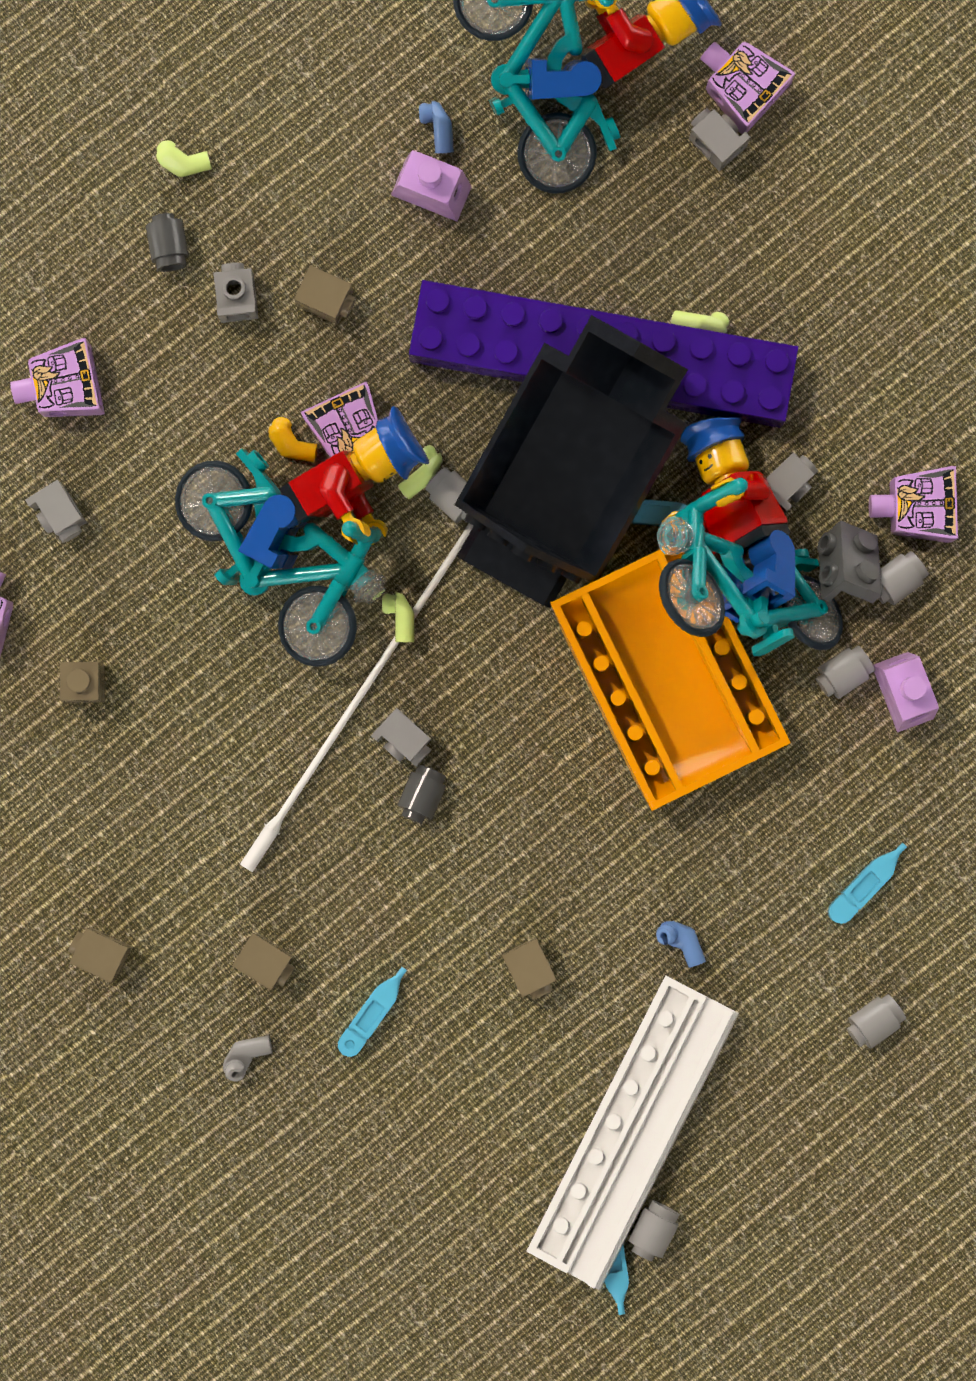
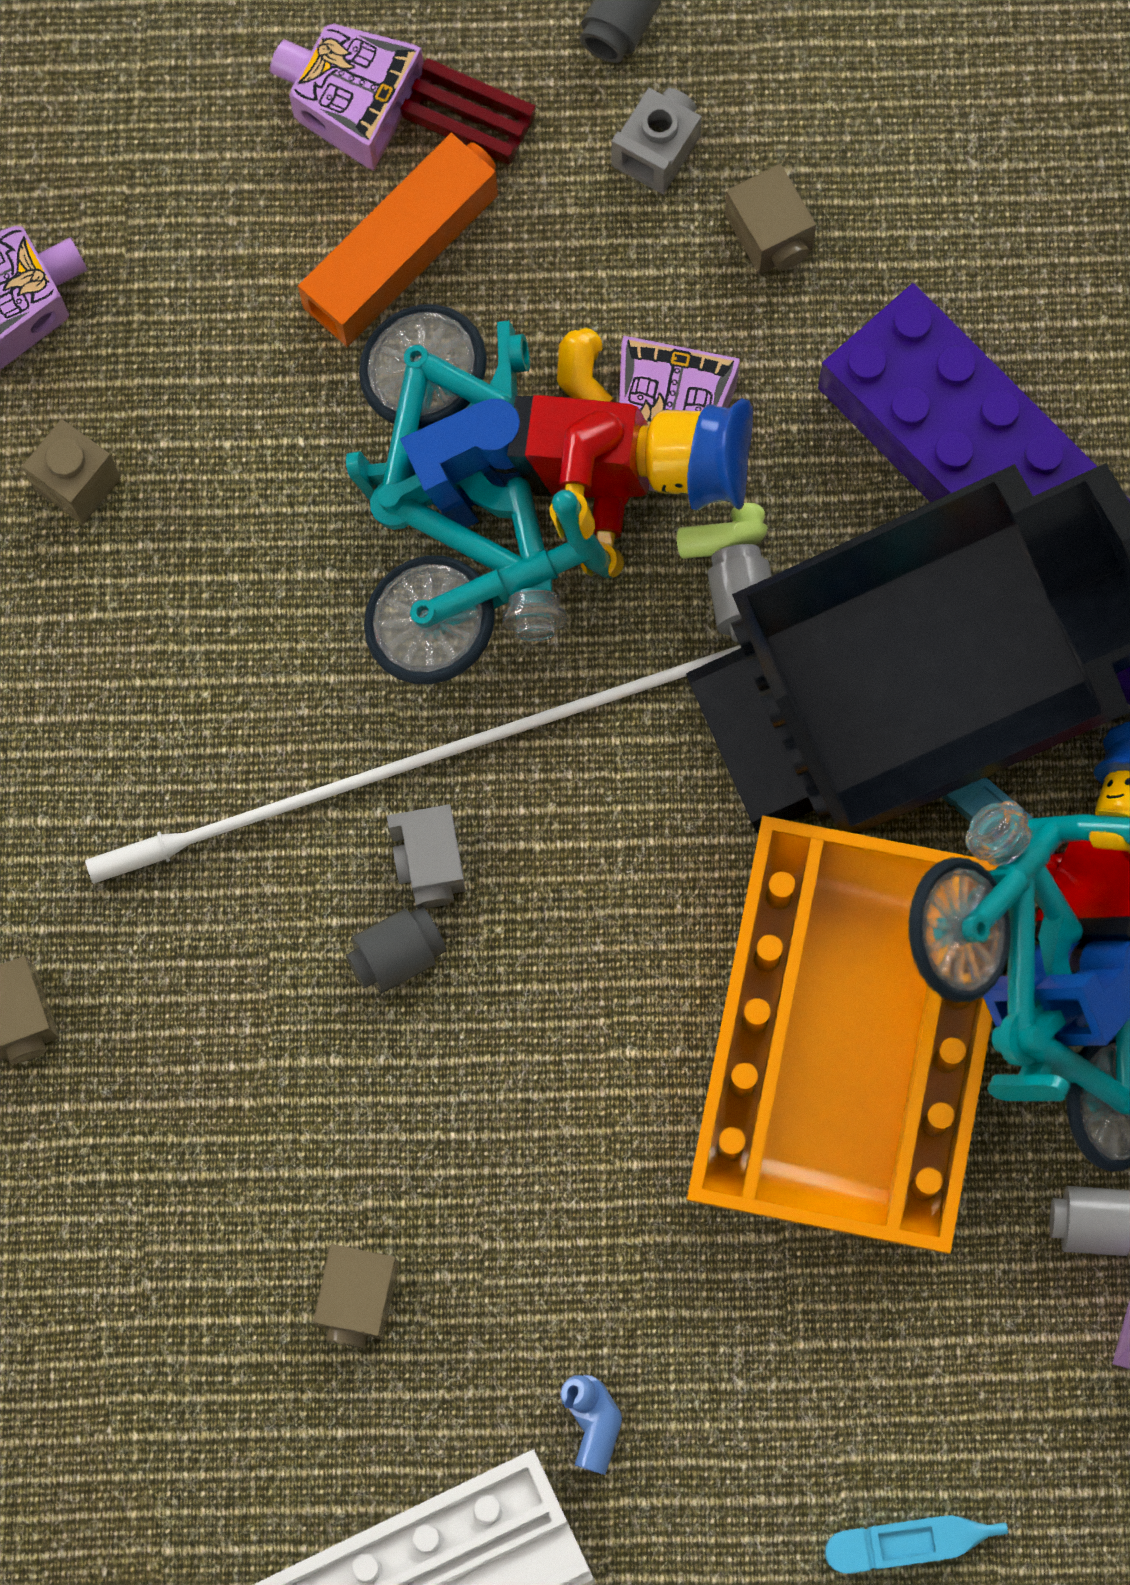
camera: 40 degrees right, 10 degrees down
(57, 511) = (215, 238): light grey brick -> none
(98, 355) = (477, 91): none -> dark red tile
(149, 441) = (400, 238): none -> orange brick
(370, 1015) = (93, 1194): medium azure piece -> none
(403, 616) = (554, 699): yellowish green arm -> none
(432, 185) = (1014, 172): lavender torso -> none
(442, 126) = (1087, 124): medium blue arm -> none

